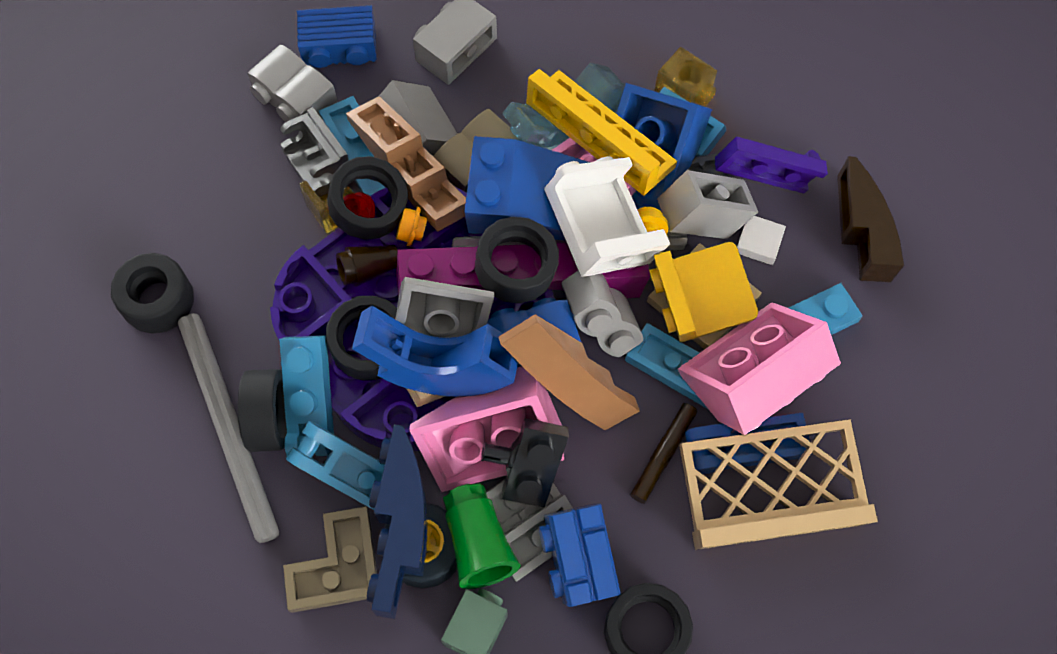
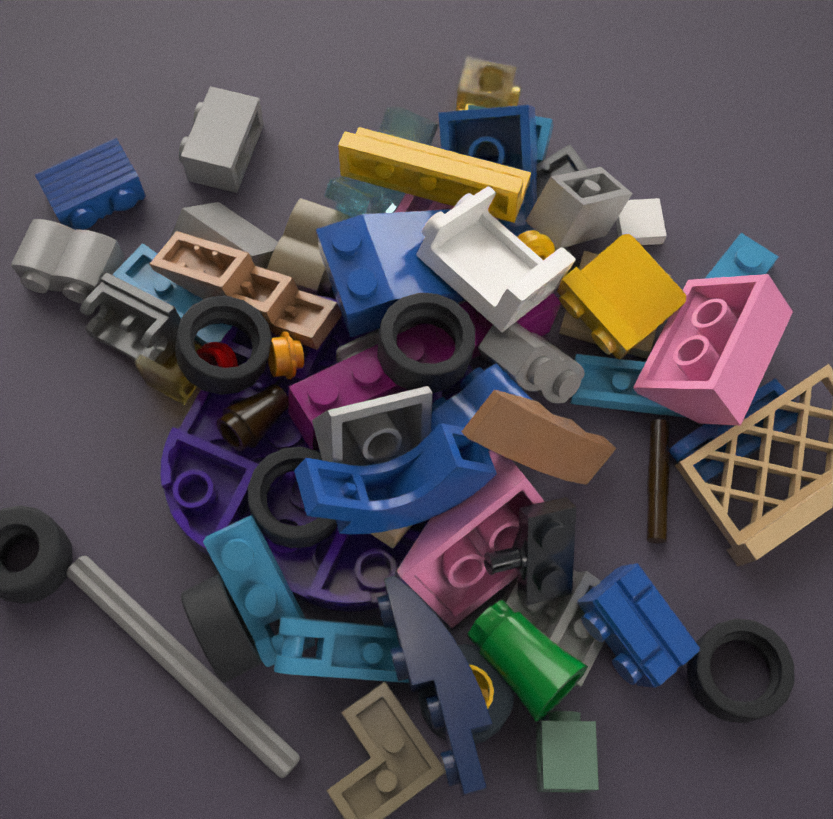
camera: 25 degrees left, 0 degrees up
(770, 164) = (617, 141): dark purple hinge -> none
(868, 224) = (736, 162): dark brown slope -> none

